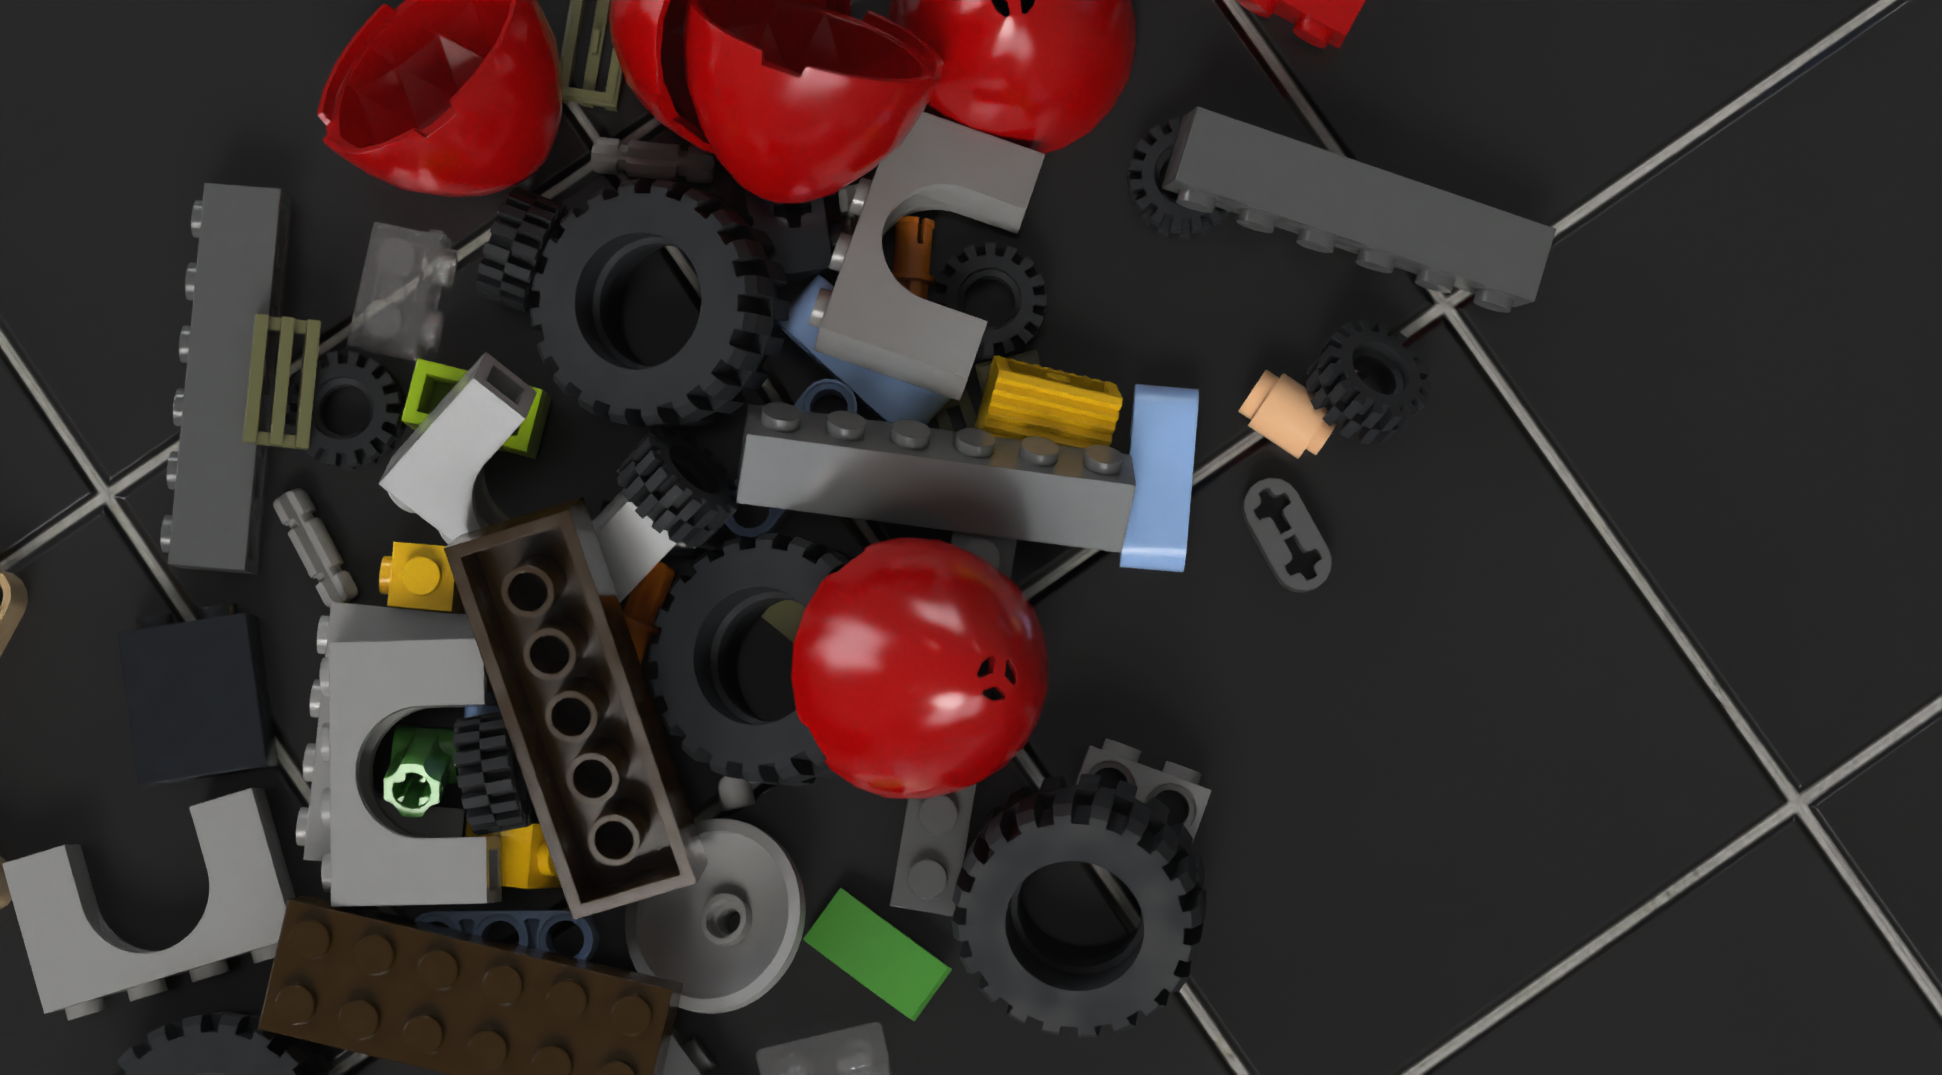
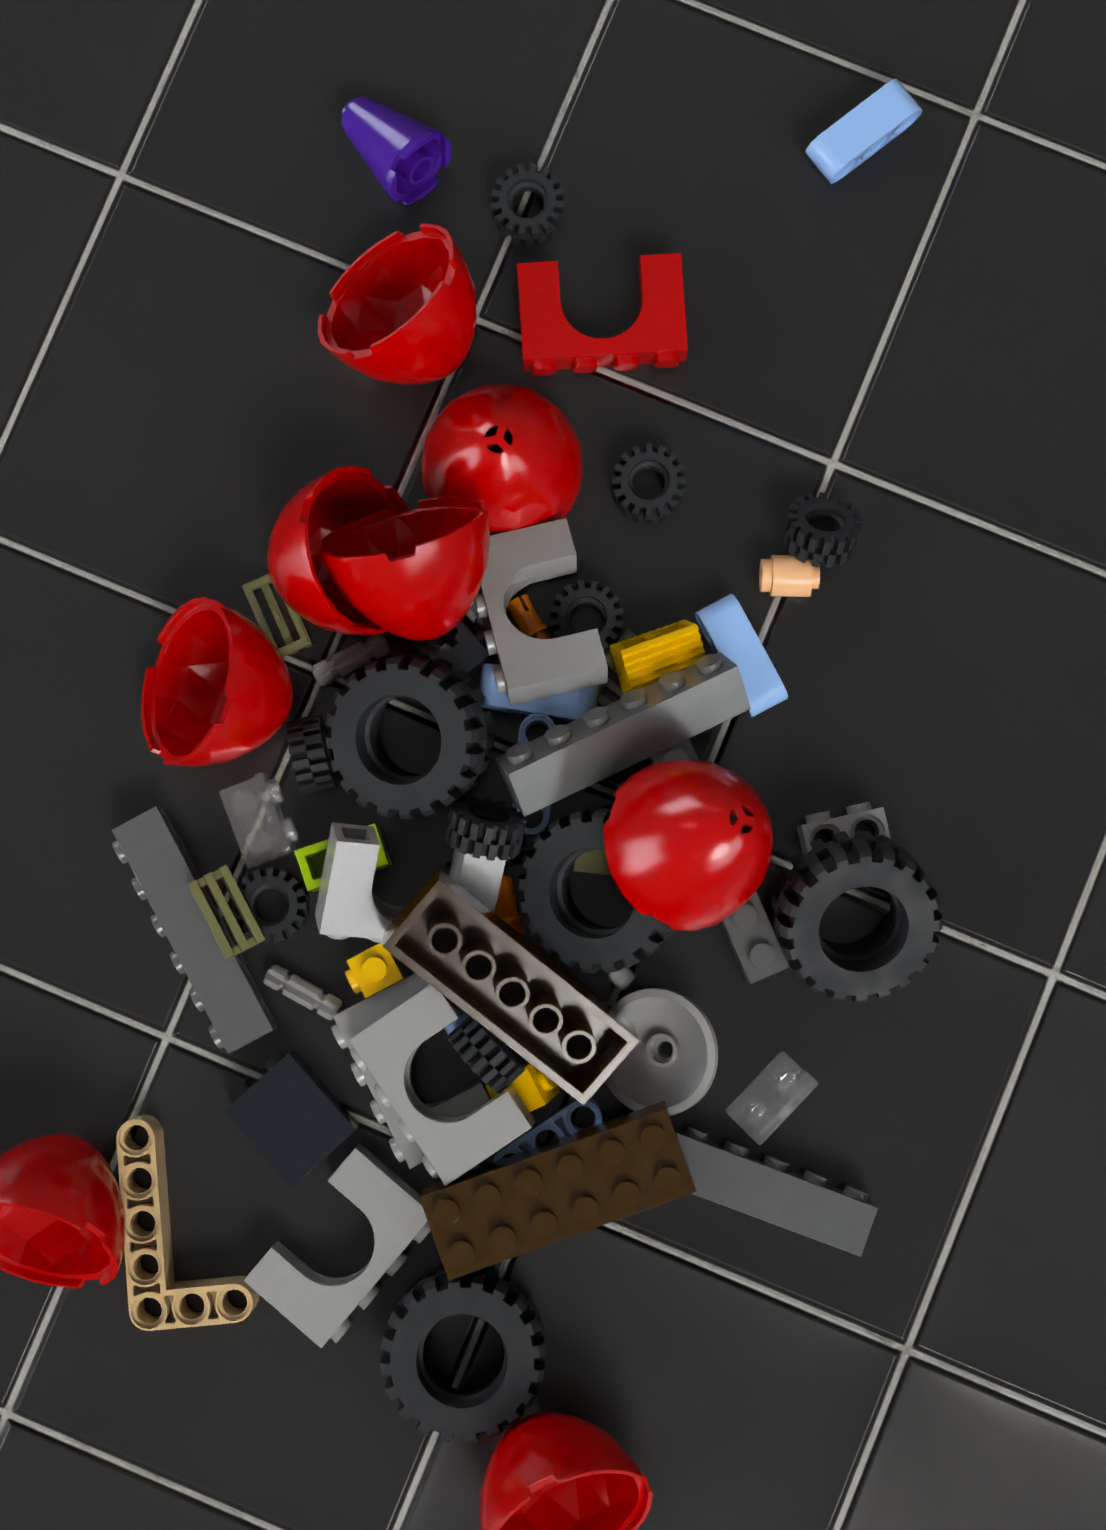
camera: 30 degrees left, 0 degrees up
(420, 768) = (442, 1075): bright green piece -> none
(877, 954) = (757, 1014): bright green slope -> none
(1299, 526) = (834, 633): dark grey beam -> none
(1357, 209) = (755, 439): dark grey brick -> none

